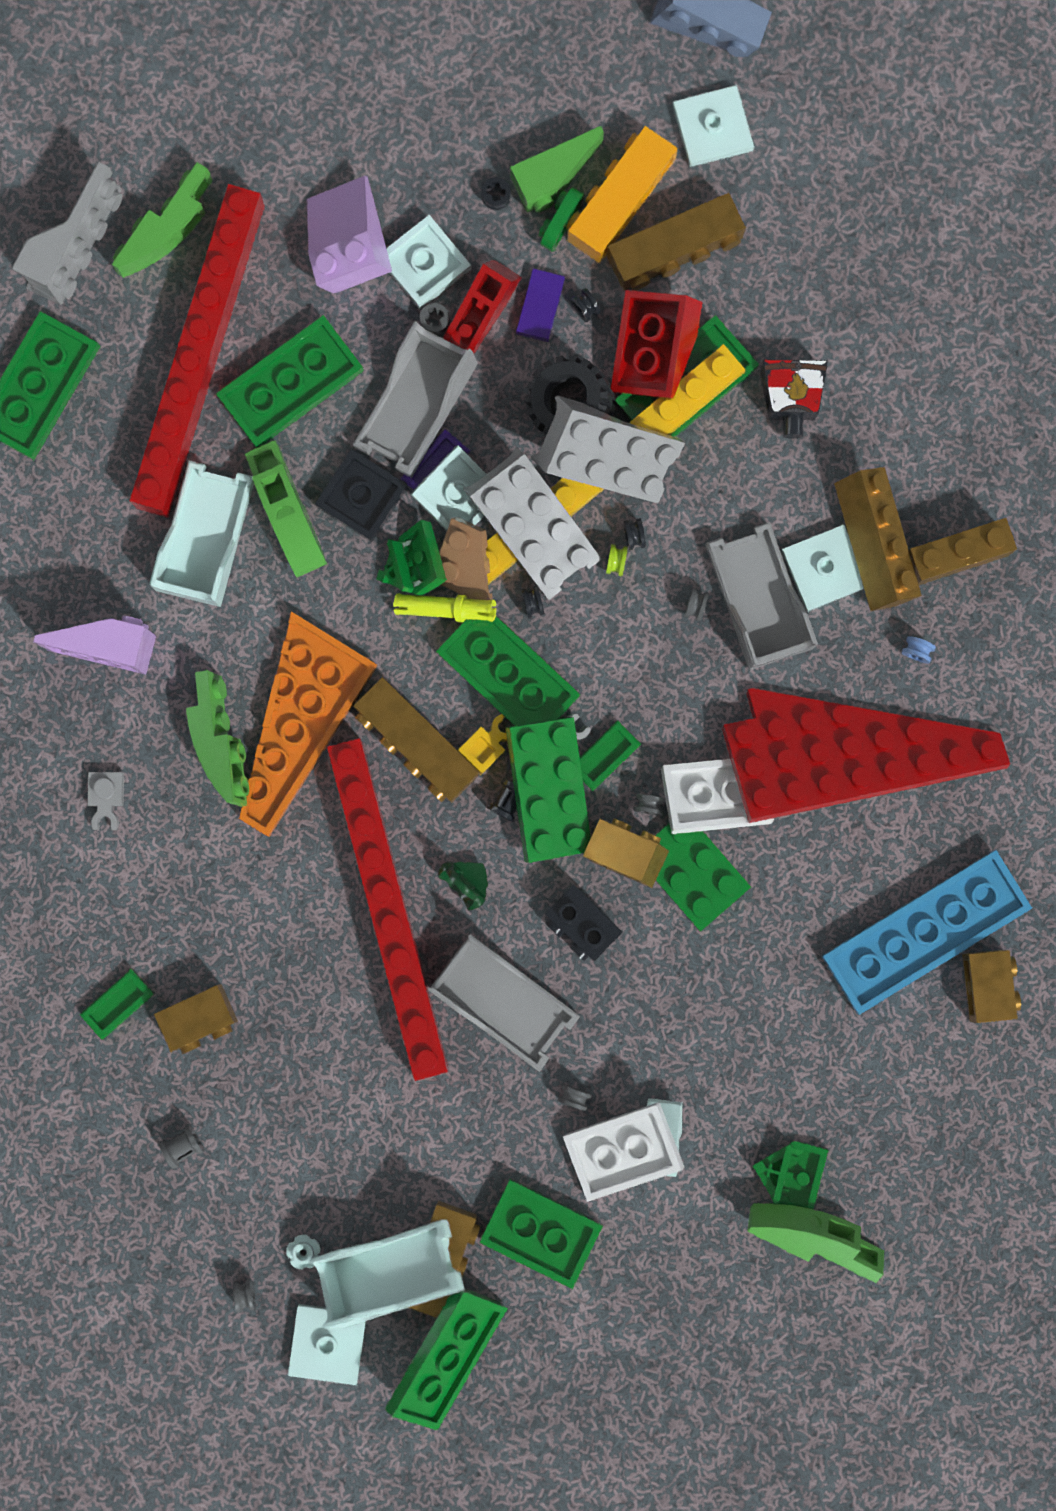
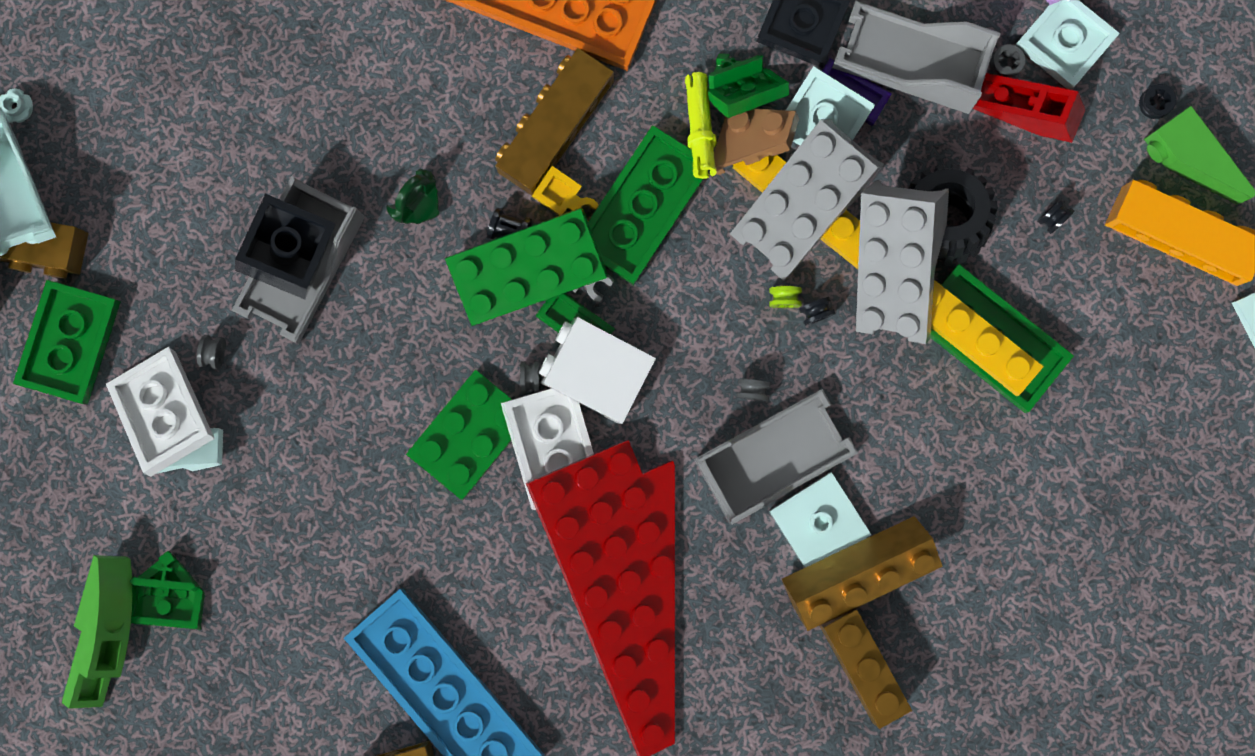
camera: 90 degrees right, 0 degrees up
(388, 909) = (373, 124): red brick -> none
(494, 1006) = (284, 246): none -> black slope
(532, 602) = (723, 216): black bush -> none
(540, 305) = (1045, 170): dark purple tile -> none
(566, 206) = (1131, 166): green plate -> none
(582, 923) = (392, 327): black brick -> none
(626, 852) = (473, 358): pearl gold brick -> none
(654, 342) = (1030, 293): red slope -> none
(655, 742) = (596, 369): none -> white panel
(676, 242) = (1145, 300): pearl gold brick -> none
(793, 392) = (1006, 454): torso -> none
(918, 649) = (749, 638): medium blue bush -> none

